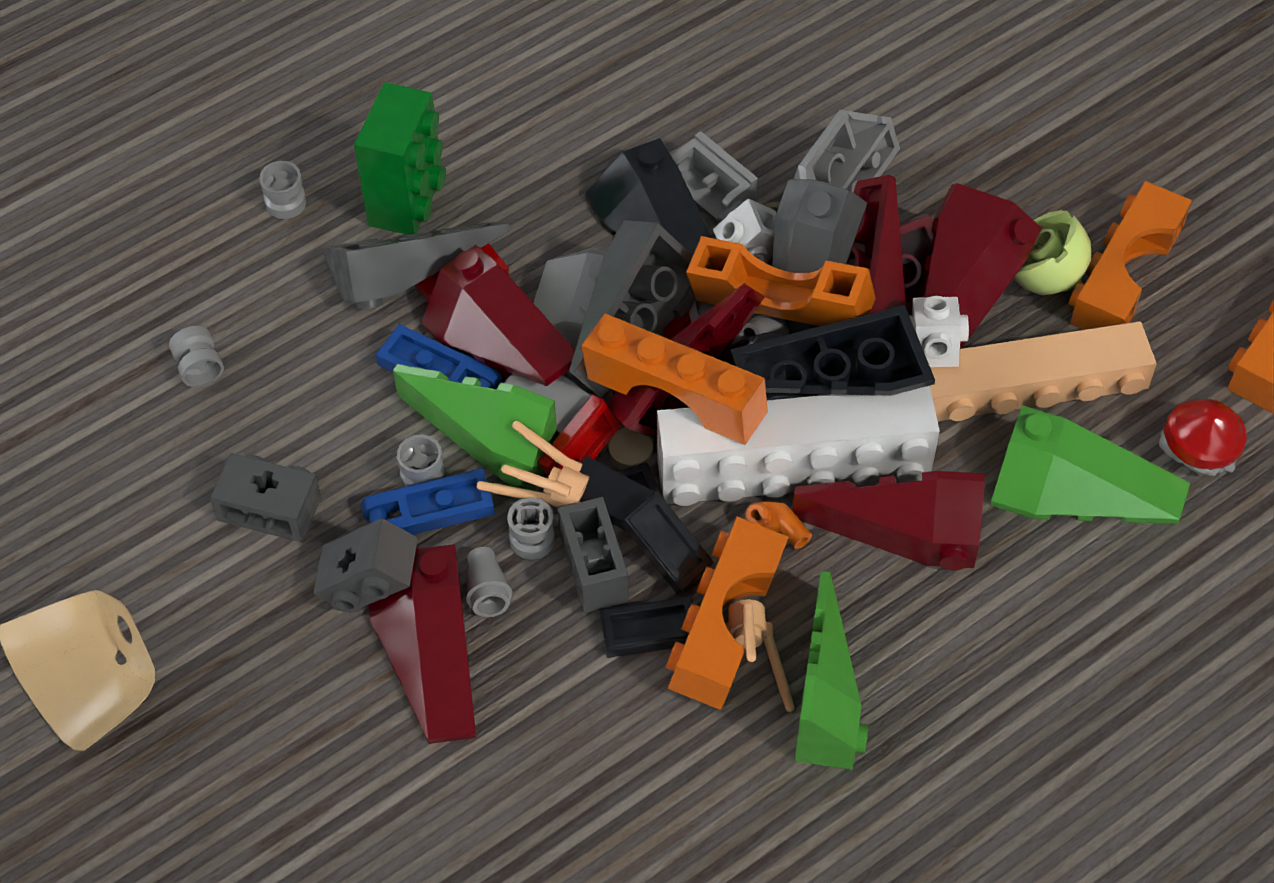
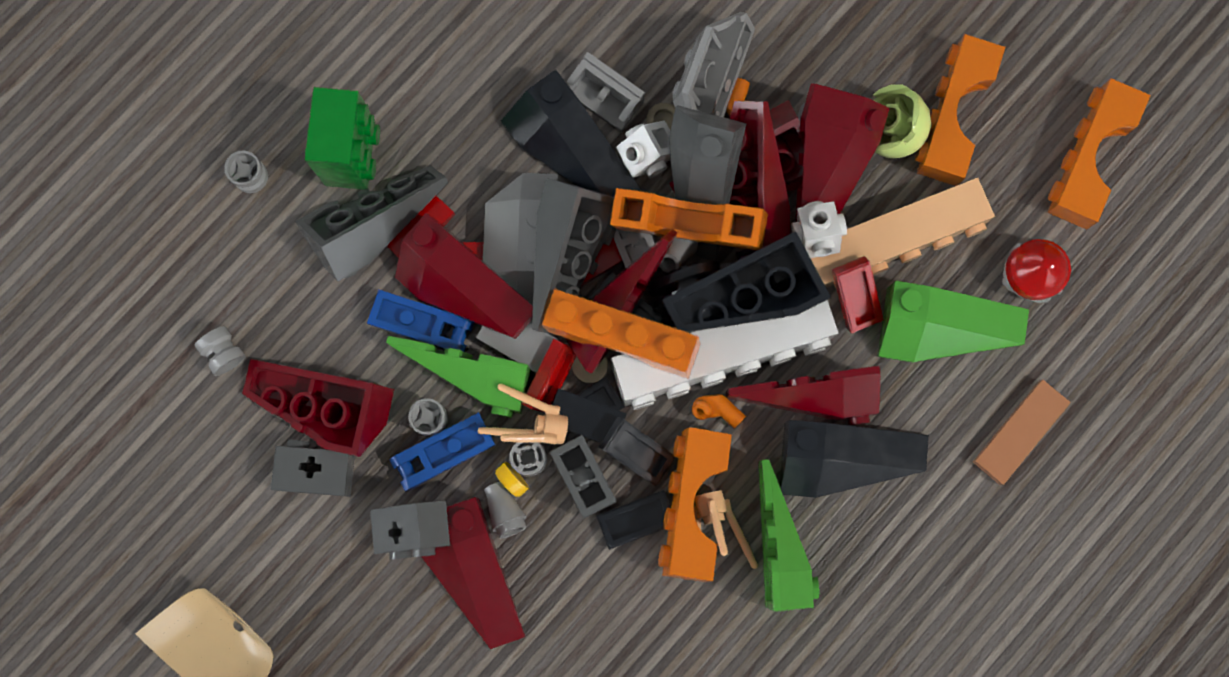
camera: 15 degrees left, 25 degrees up
(301, 424) = (328, 408): none -> dark red wedge
(504, 549) = (511, 479): none -> yellow tile
(920, 595) = (838, 458): none -> black wedge
(974, 421) = (857, 294): none -> red tile
(1162, 615) = (1021, 432): none -> nougat tile

